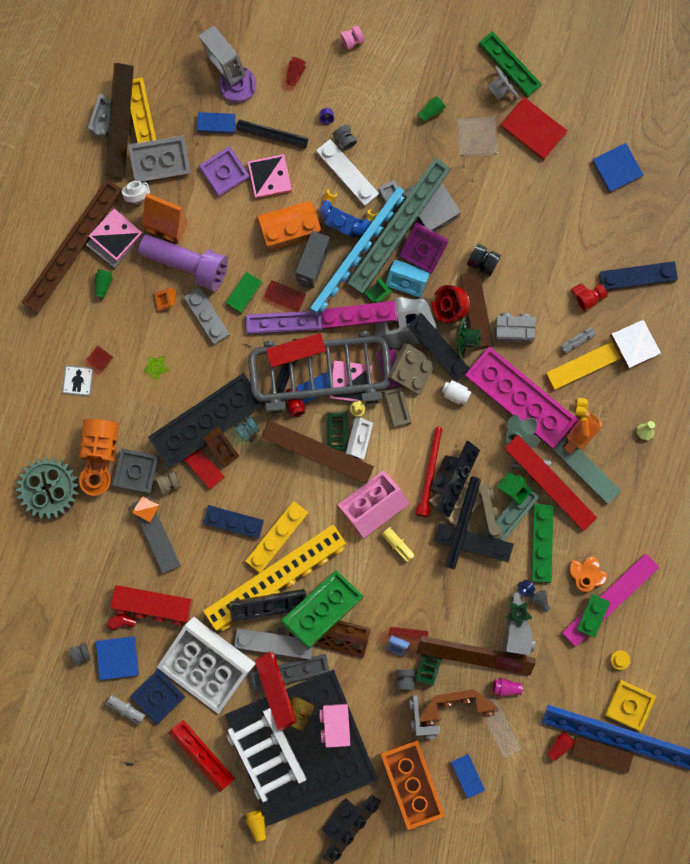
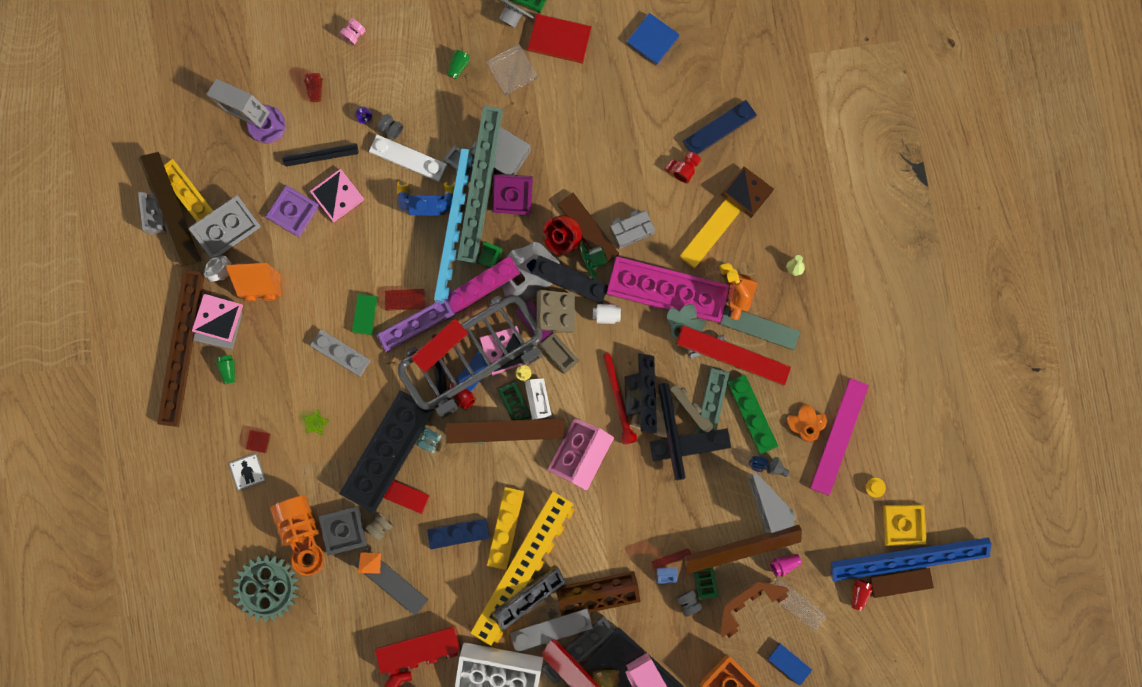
camera: 30 degrees left, 0 degrees up
(165, 299) = (293, 355): orange slope -> none
(207, 268) = (319, 308): medium lavender piece -> none
(216, 122) = (263, 169): blue tile -> none
(221, 447) = (412, 469): reddish brown plate -> none
(289, 225) = (378, 232): orange slope -> none
(312, 259) = (414, 253): dark grey window -> none
(322, 609) = (581, 576): green tile -> none
(398, 544) = (621, 480): light yellow axle -> none
(407, 278) = (510, 229): medium azure panel -> none
(428, 731) = (735, 642): light grey bracket -> none
(483, 259) = (572, 179): black wheel -> none
(514, 488) = (703, 376): green brick -> none
(519, 608) = (772, 491): dark green plate -> none
(578, 340) = (694, 212): light grey axle -> none
(593, 615) = (831, 459): green plate -> none

